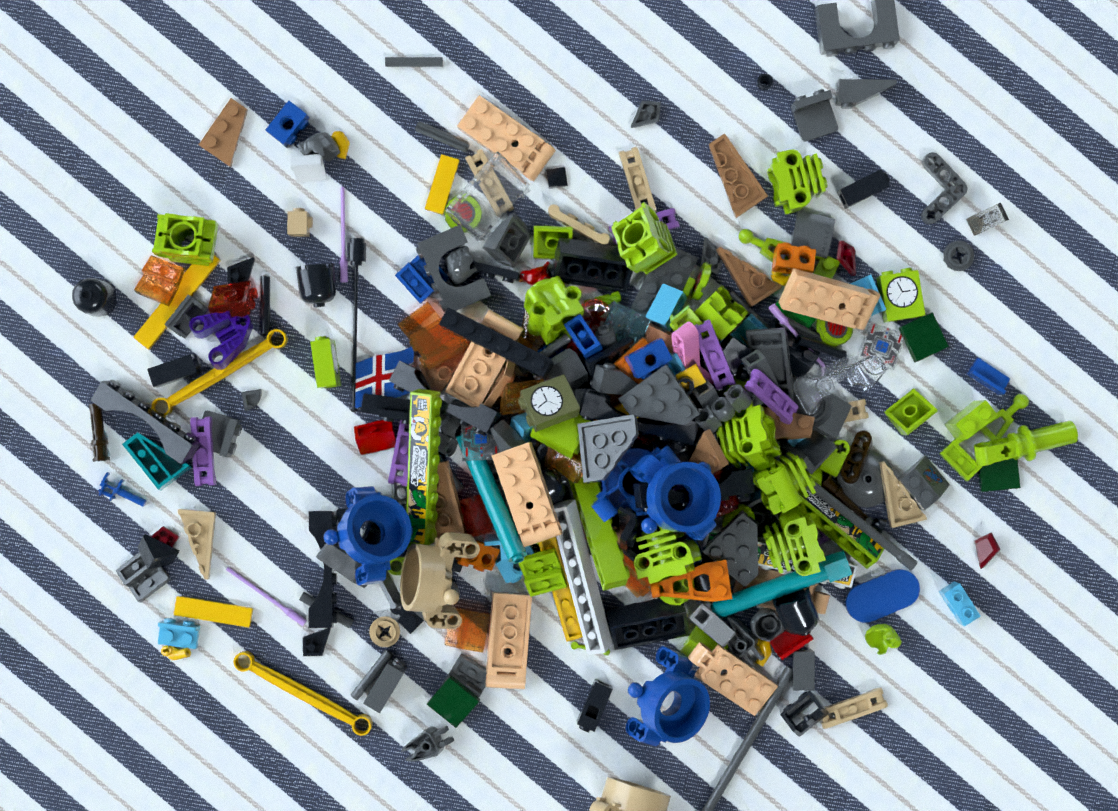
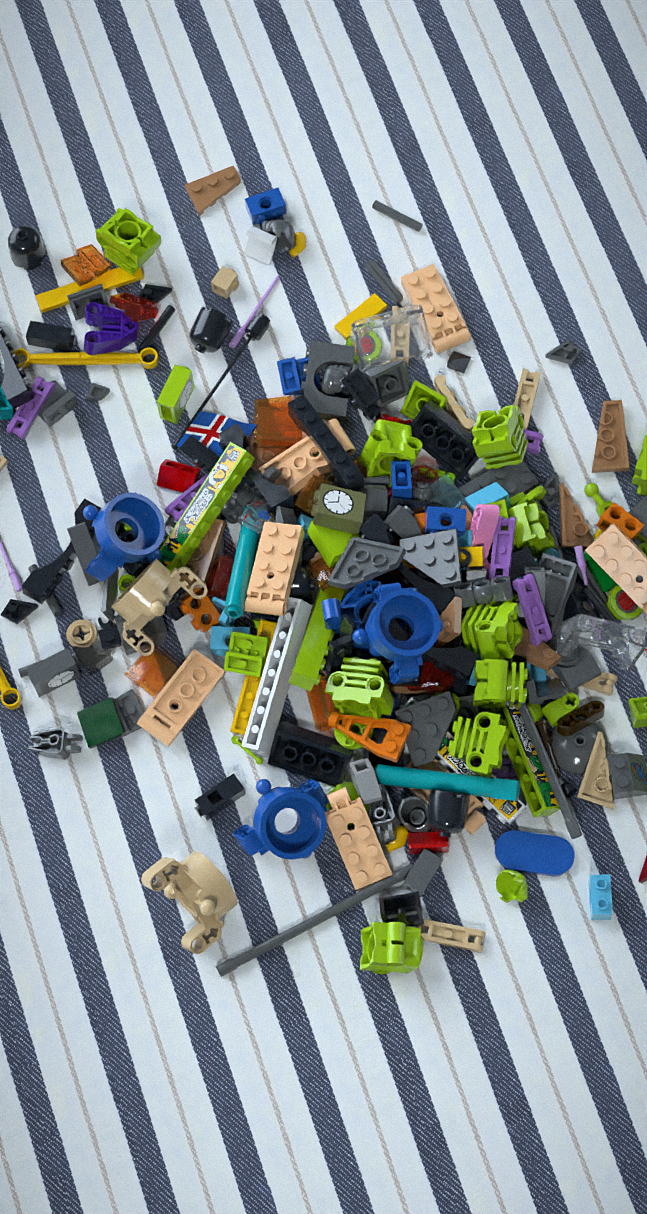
camera: 35 degrees right, 20 degrees down
(408, 650) = (93, 659): none -> clear smoke slope
(462, 395) = (272, 474): none -> dark grey tile
(490, 266) = (359, 389): none -> black bracket
(817, 755) = (391, 948): none -> lime piece

